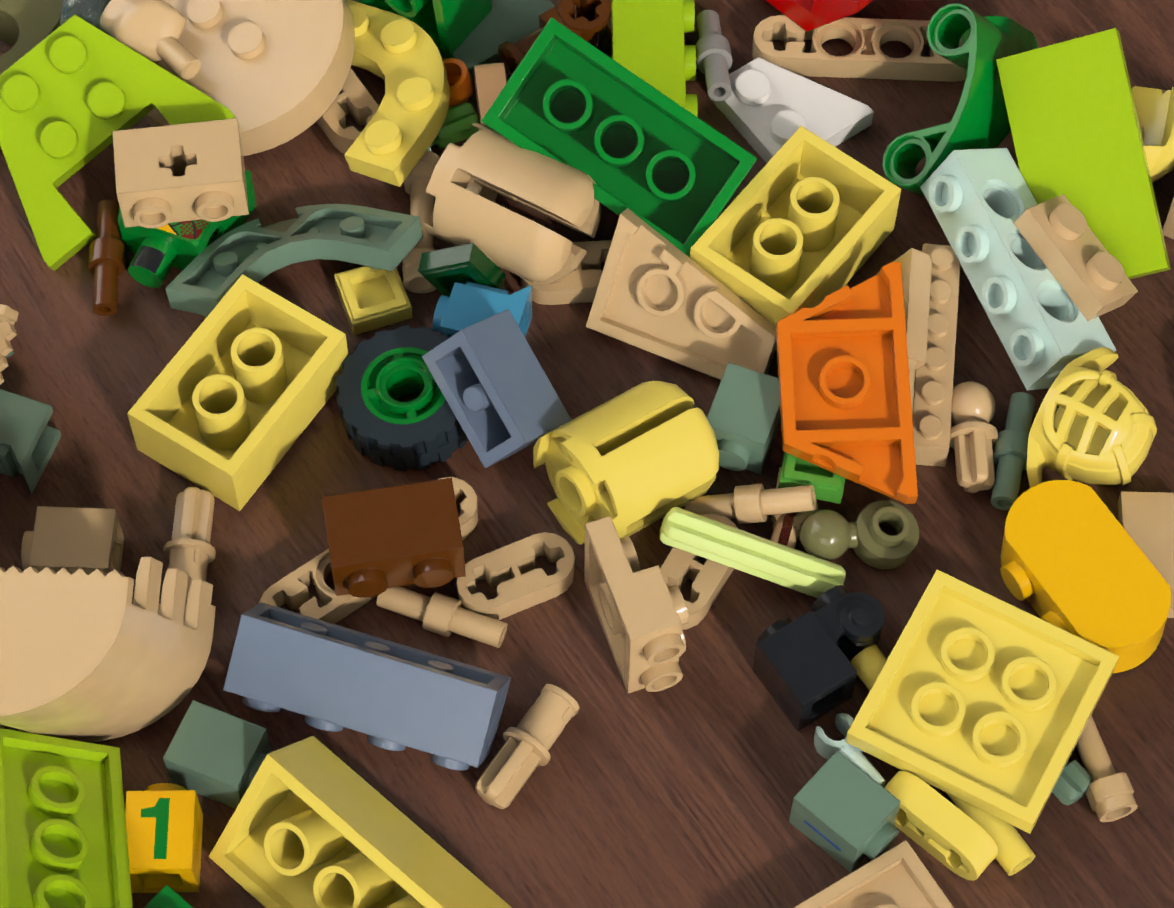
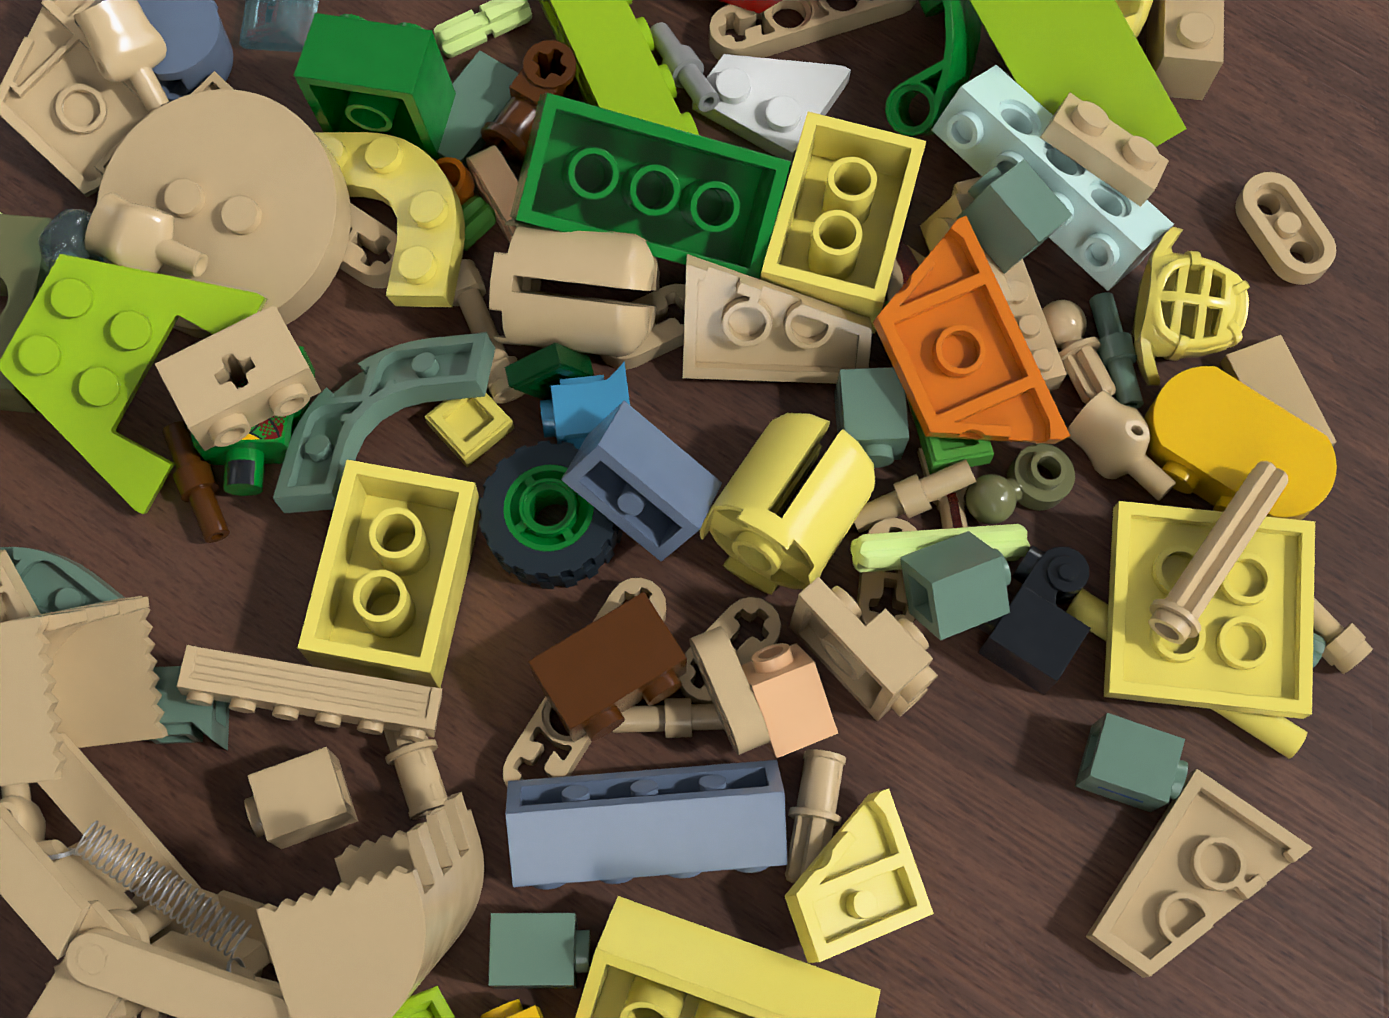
camera: 25 degrees left, 10 degrees up
(123, 457) = (309, 691): none -> tan piece
(493, 598) = (729, 690): none -> tan beam
(536, 815) = (858, 884): none -> light yellow wing
(544, 626) = (789, 697): none -> light nougat brick
(746, 584) = (956, 584): none -> sand green brick
(827, 747) = (1115, 706): light aqua hand -> none
(941, 827) = (1219, 741): light yellow beam -> none
(942, 679) = (1179, 612): none -> tan axle
(955, 282) = (1013, 213): none -> sand green brick
(968, 526) = (1117, 442): none -> tan piece

